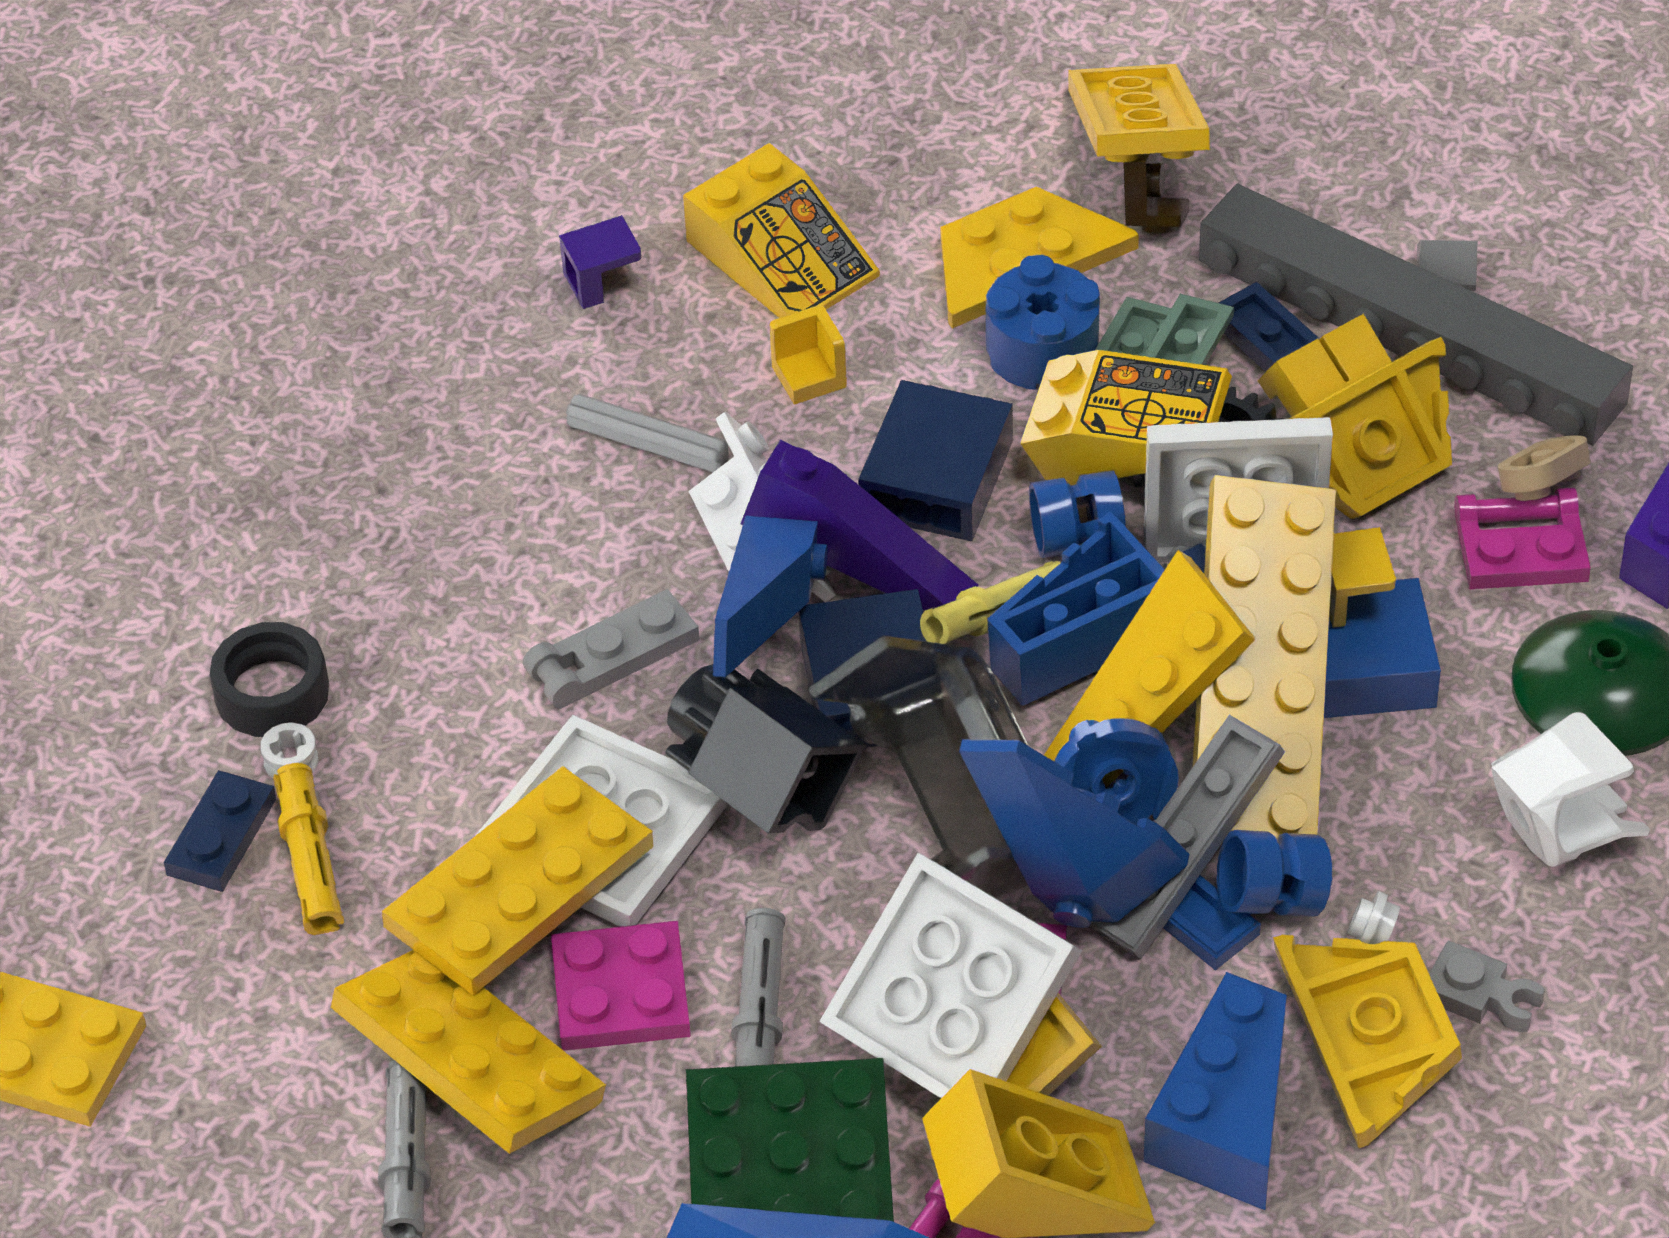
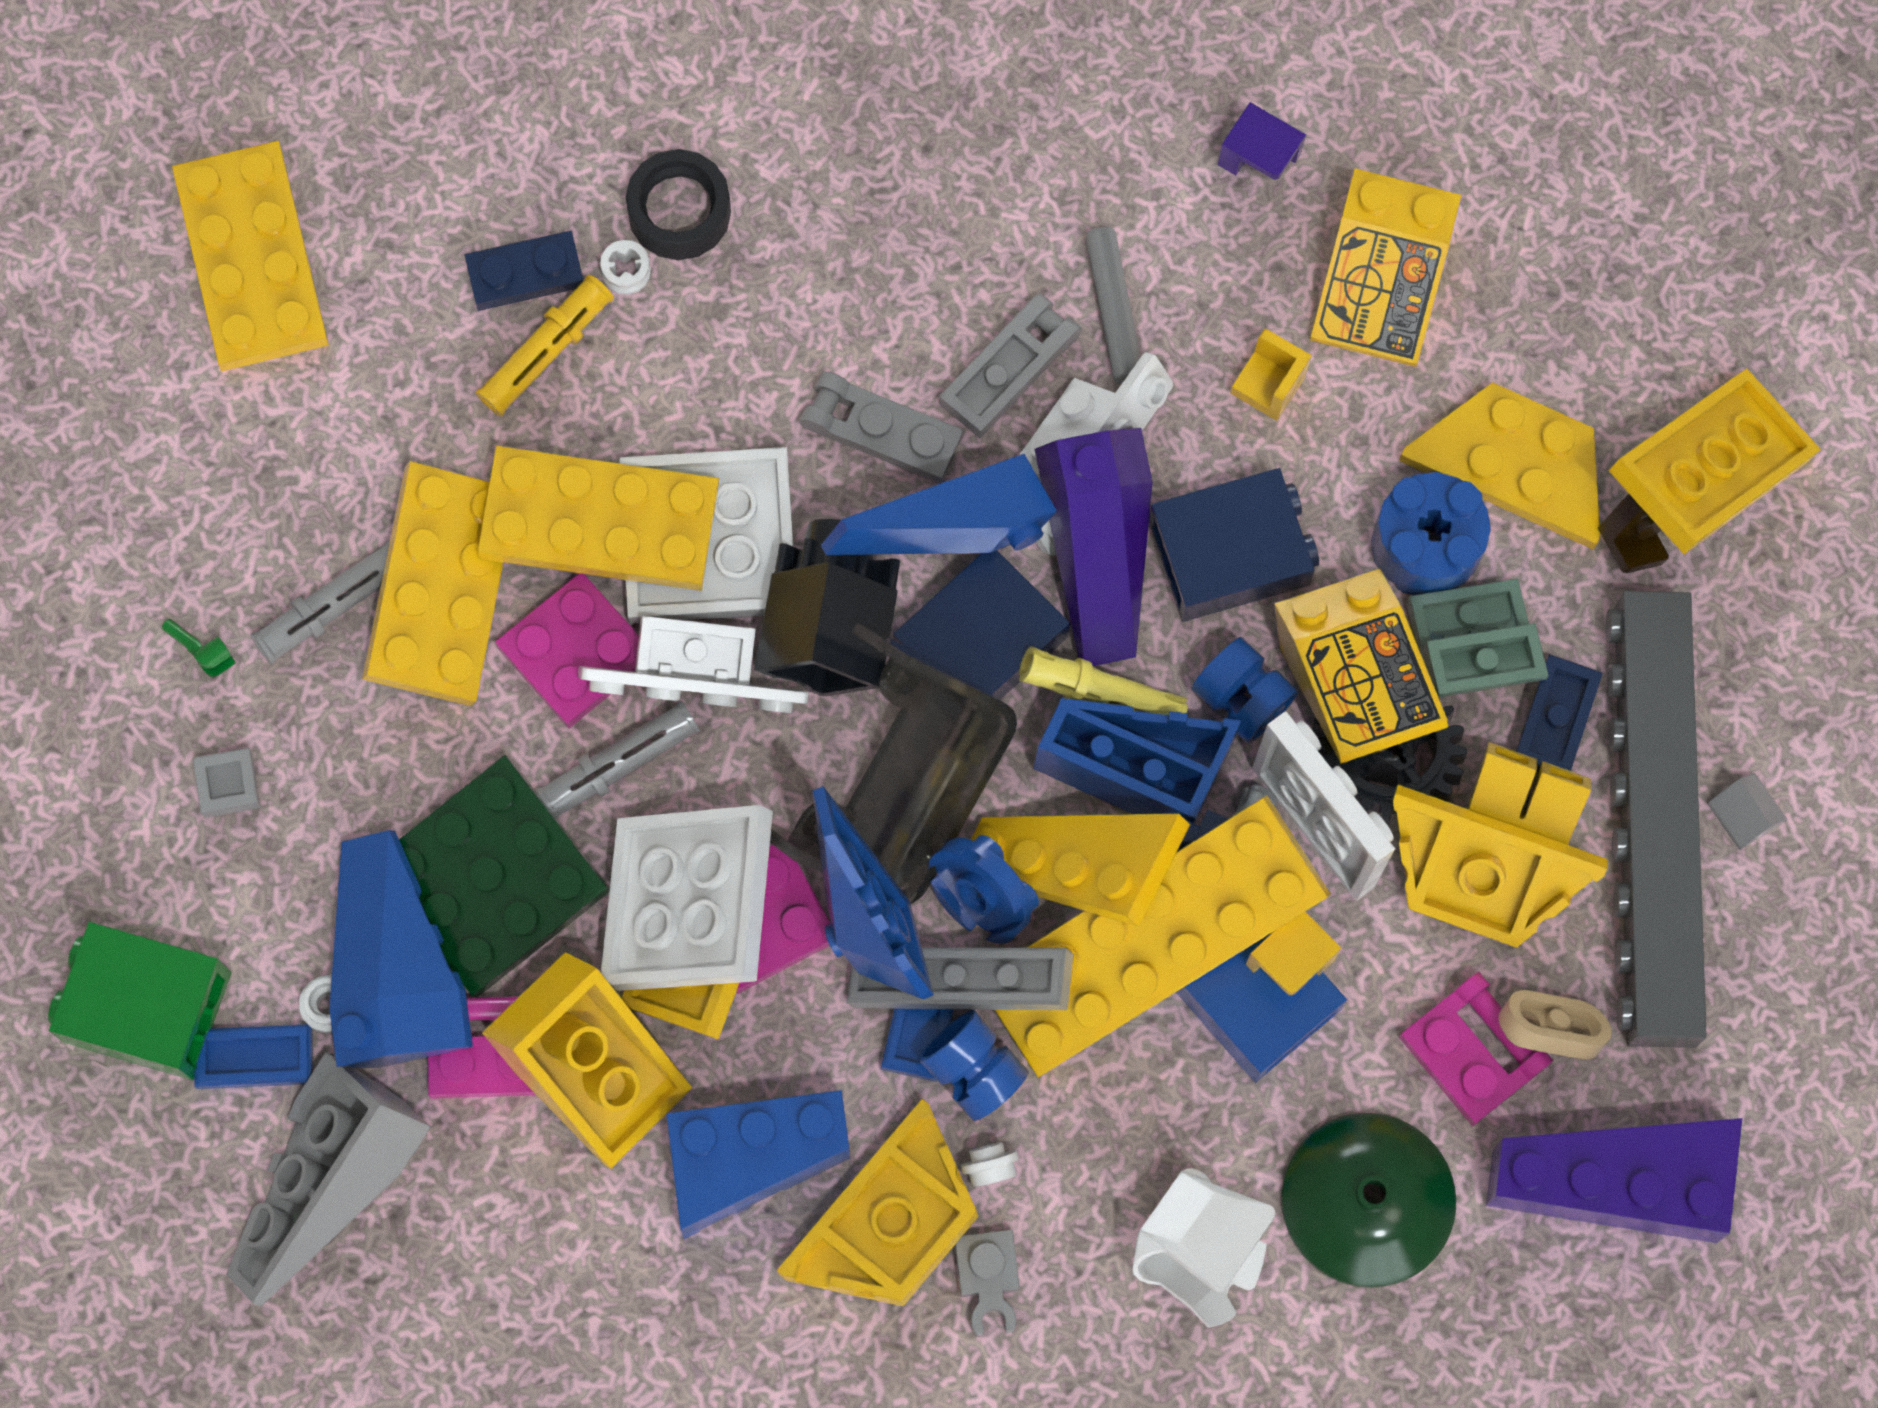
camera: 50 degrees right, 25 degrees up
(638, 530) = (1008, 366): none -> light grey plate
(716, 880) = (695, 659): none -> white bracket

